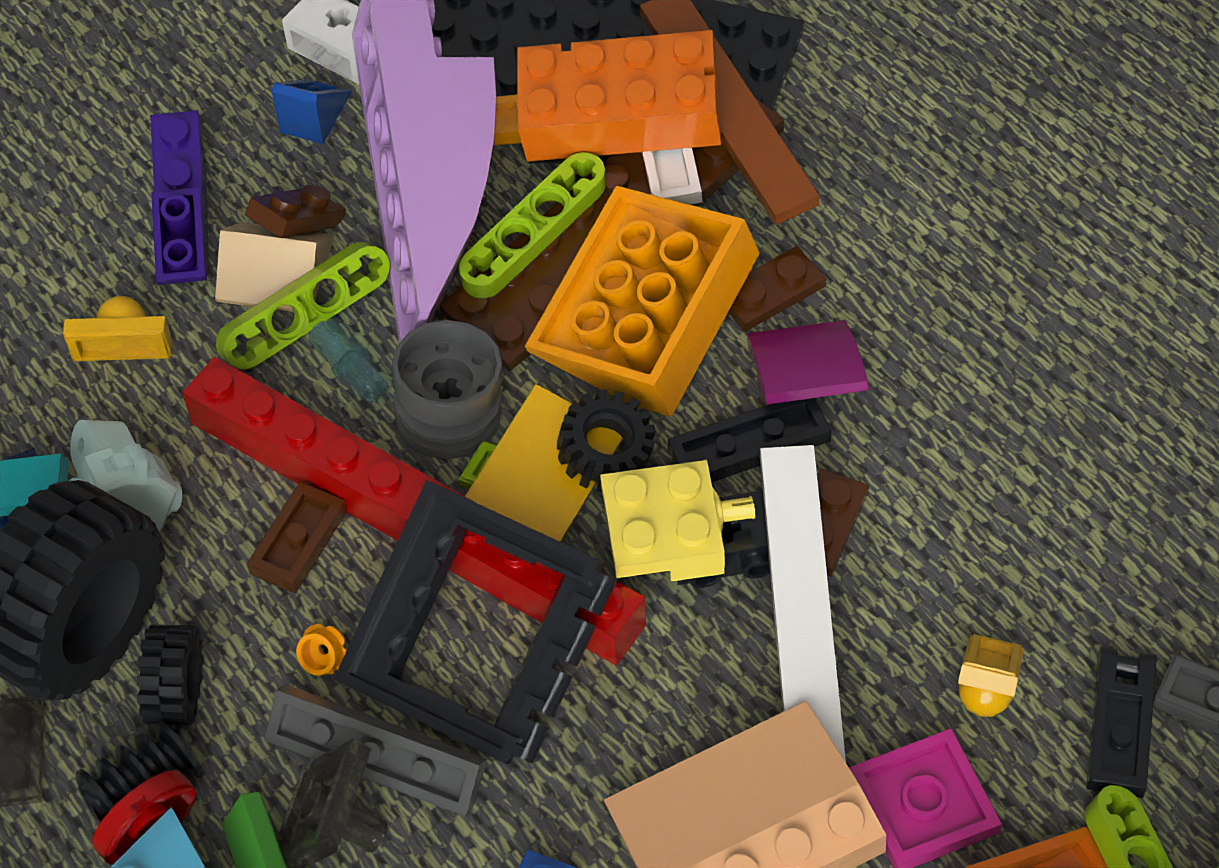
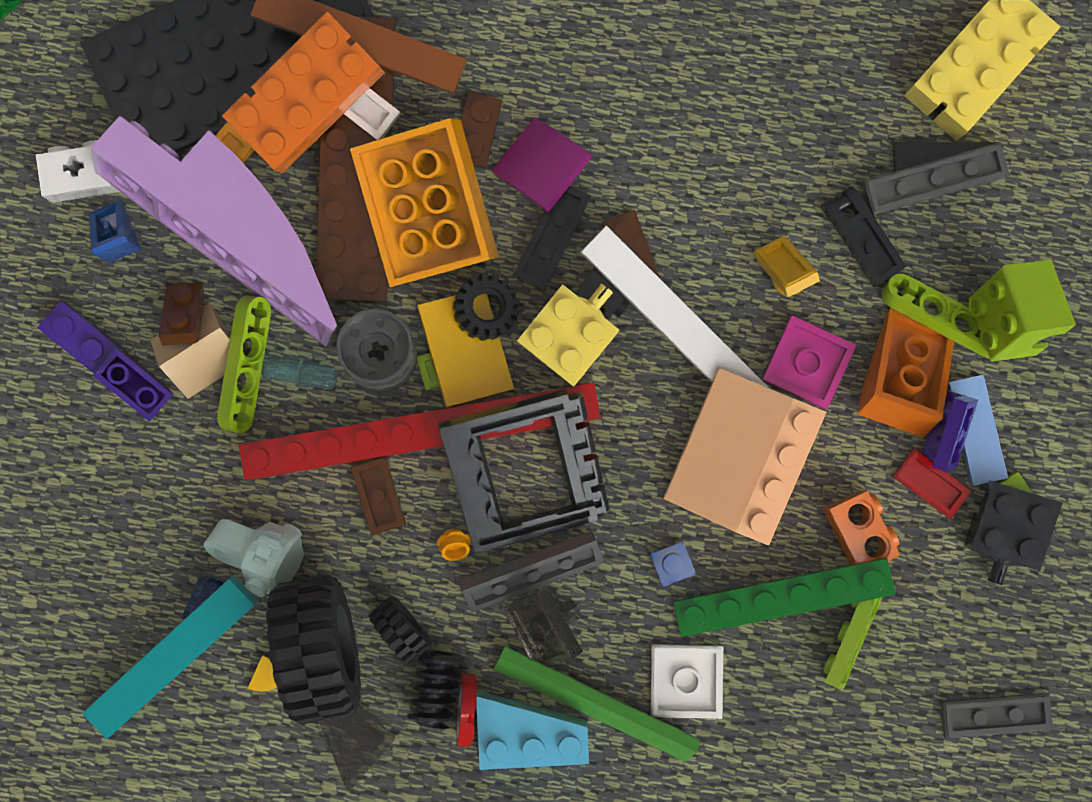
camera: 45 degrees left, 30 degrees up
(118, 333) = (161, 467): yellow tile -> none
(527, 220) = (330, 210): lime beam -> none

